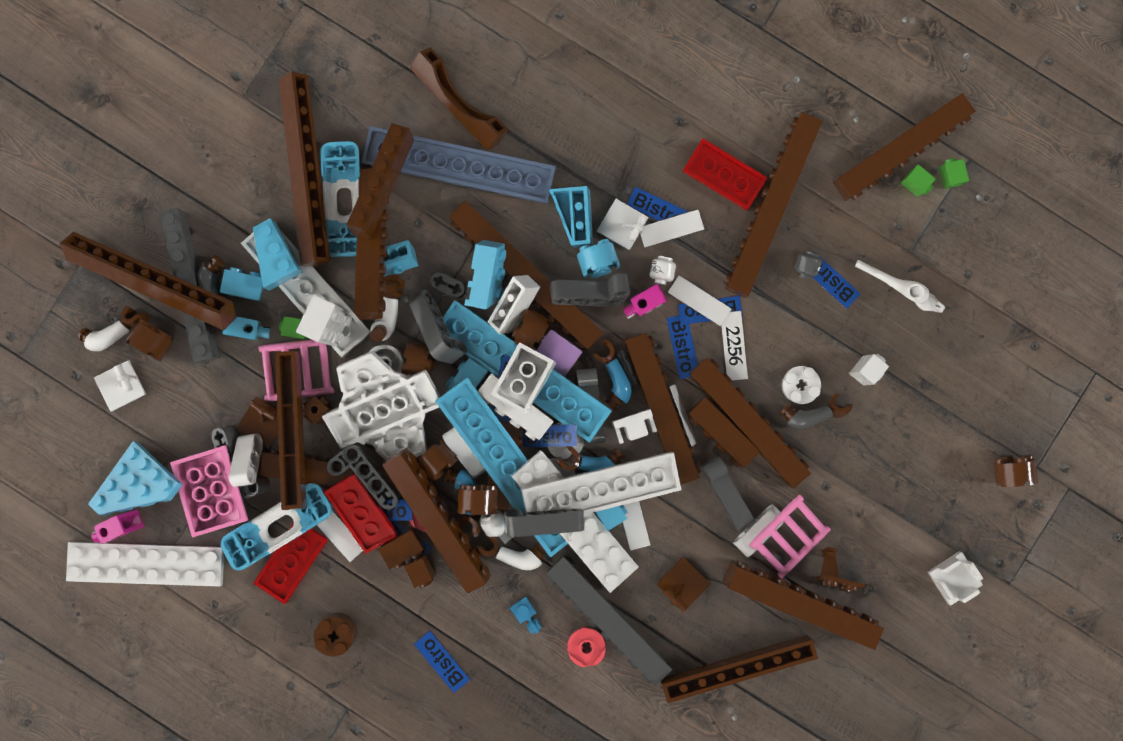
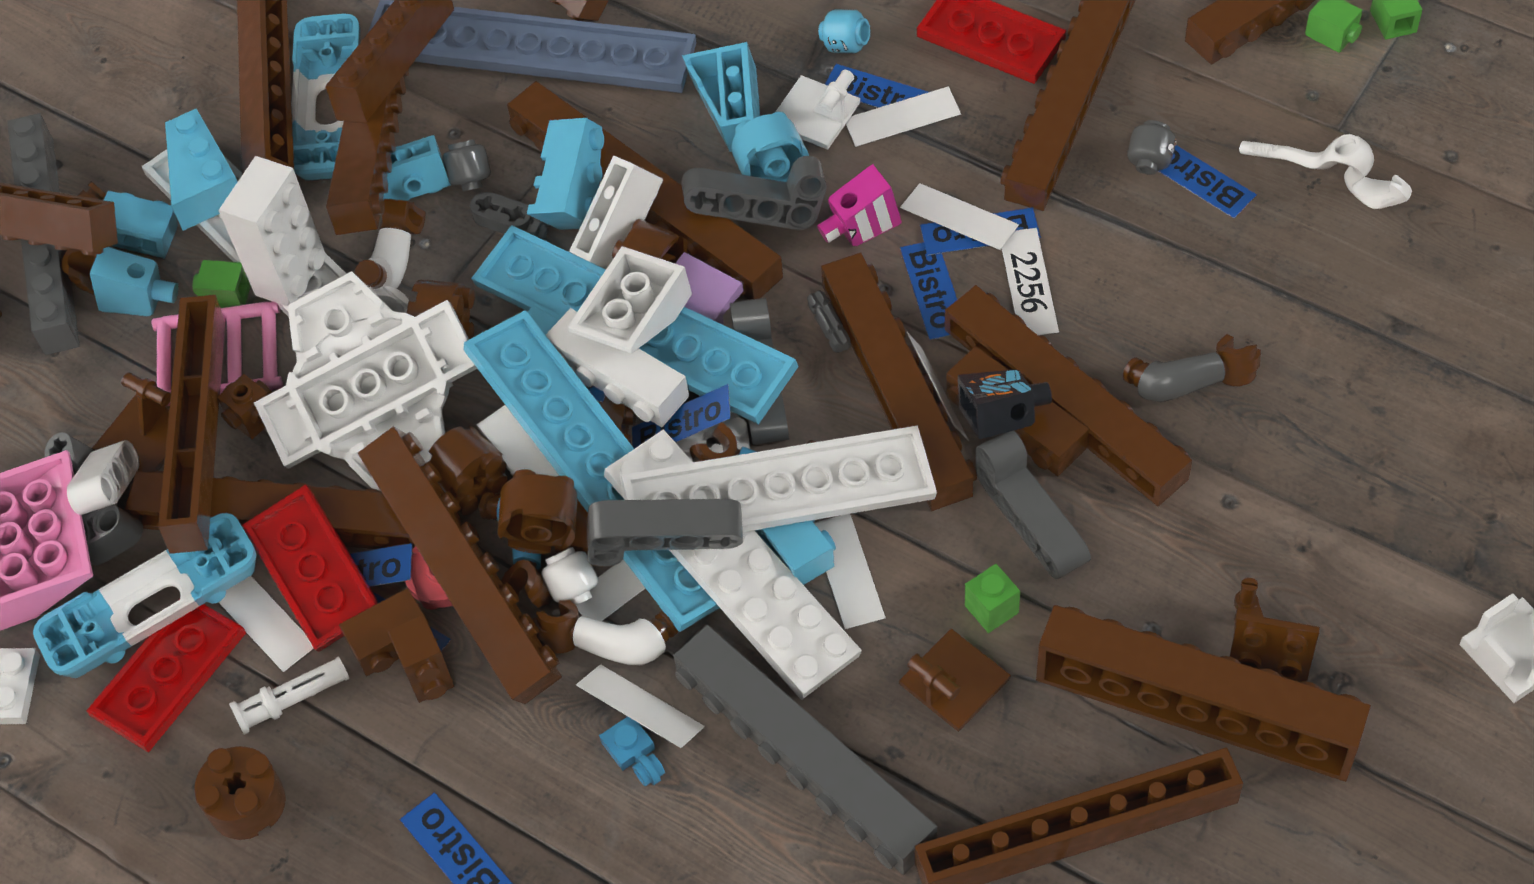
camera: 10 degrees right, 30 degrees down
(346, 582) = (271, 702): none -> white pin
(356, 464) = (296, 471): dark grey beam -> none
(427, 254) = (466, 164): none -> dark grey head
(434, 329) = (477, 266): dark grey beam -> none
(529, 591) = (640, 706): none -> white sticker
(575, 647) = (757, 826): coral plate -> none
(621, 385) = (818, 345): dark azure piece -> none
(634, 425) = (838, 391): white panel -> none
(641, 169) = (844, 31): none -> medium azure head
(662, 270) = (891, 161): white head -> none
(704, 543) = (992, 598): none -> bright green brick
(717, 443) = (1000, 401): none -> black torso
(746, 537) = (1103, 572): white beam -> none
(771, 530) = (1145, 528): bright pink bar -> none
(792, 378) = (1165, 316): white plate -> none
(869, 369) = (1282, 289): white brick -> none

